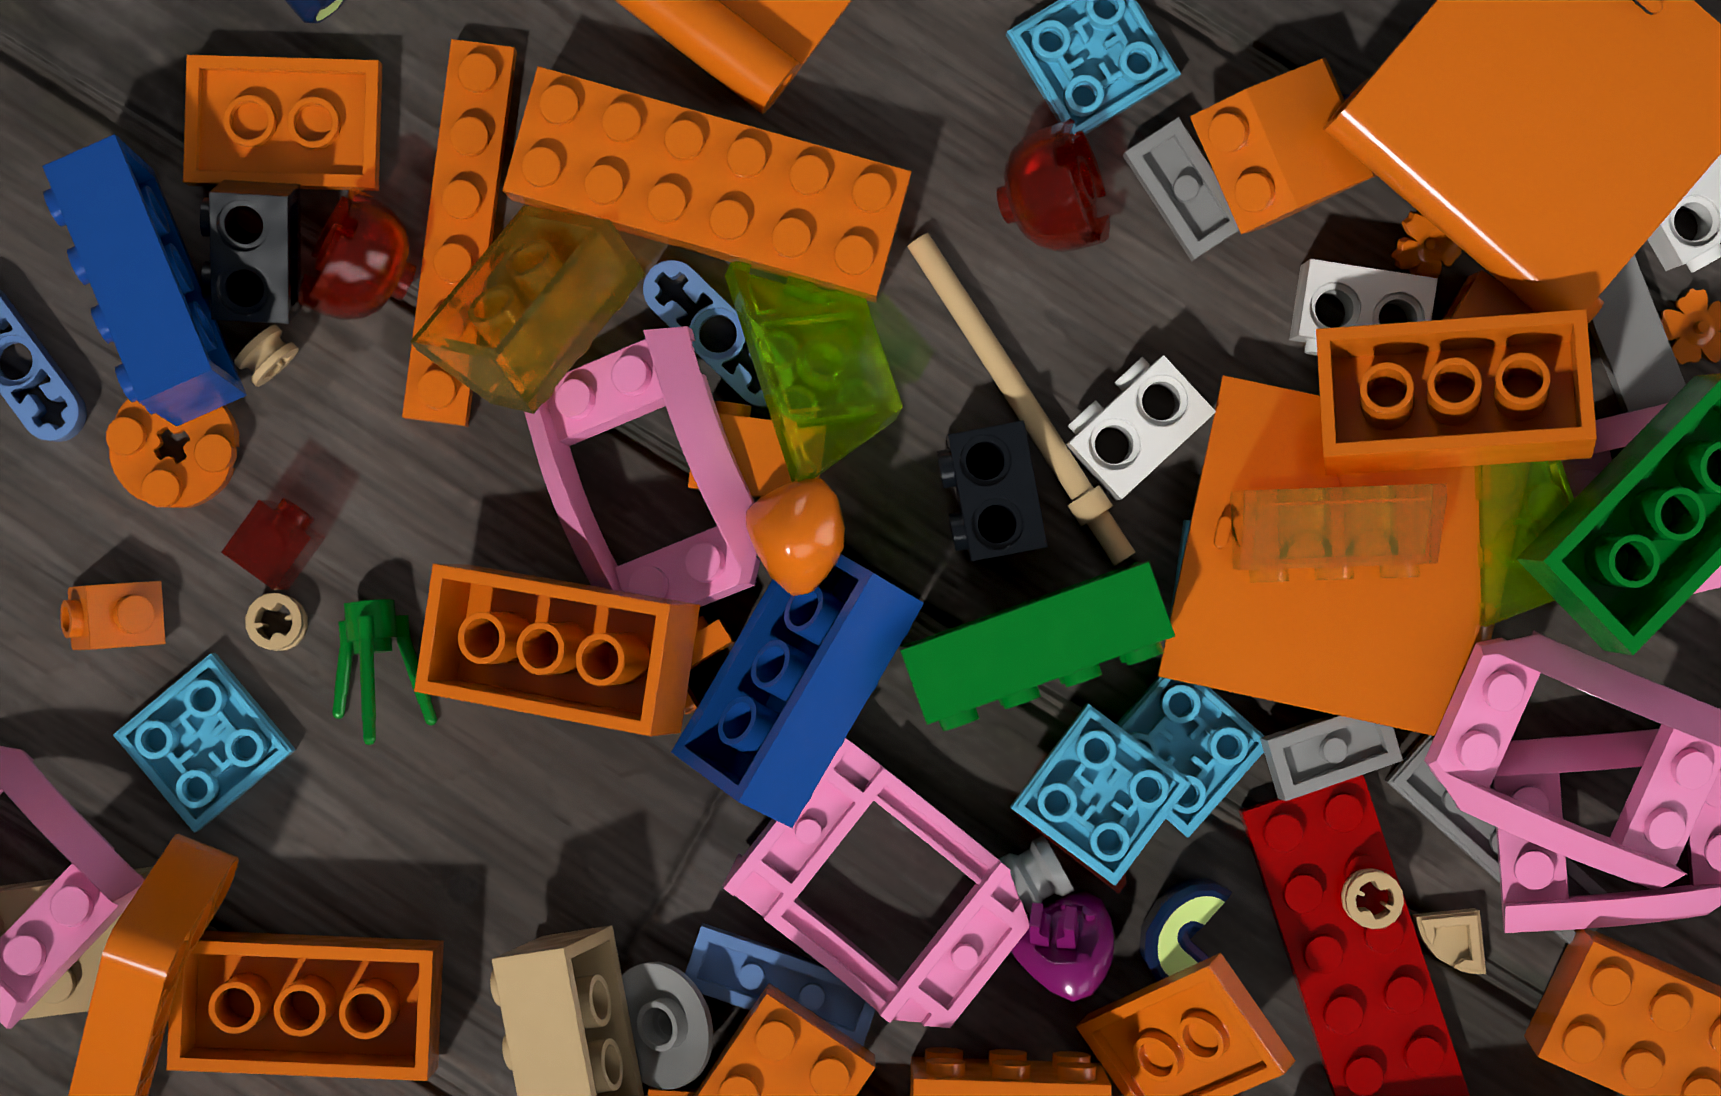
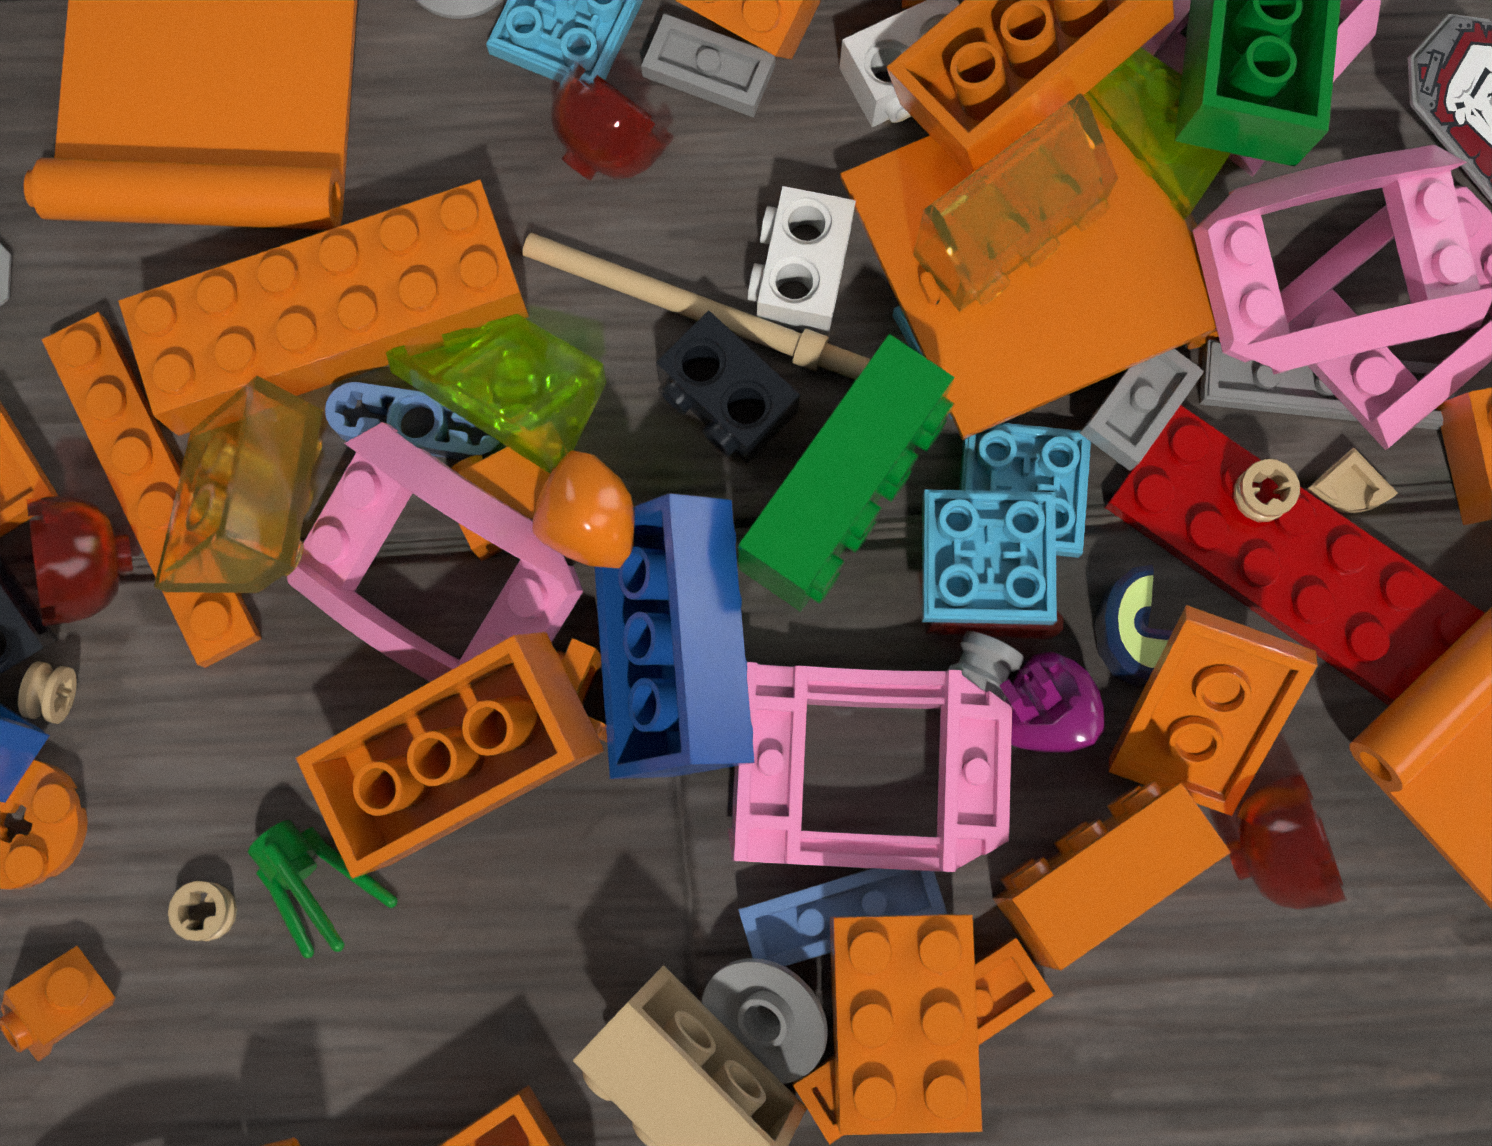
camera: 35 degrees left, 10 degrees down
(204, 742) = (205, 1060): medium azure tile -> none
(274, 542) = (152, 840): clear red brick -> none

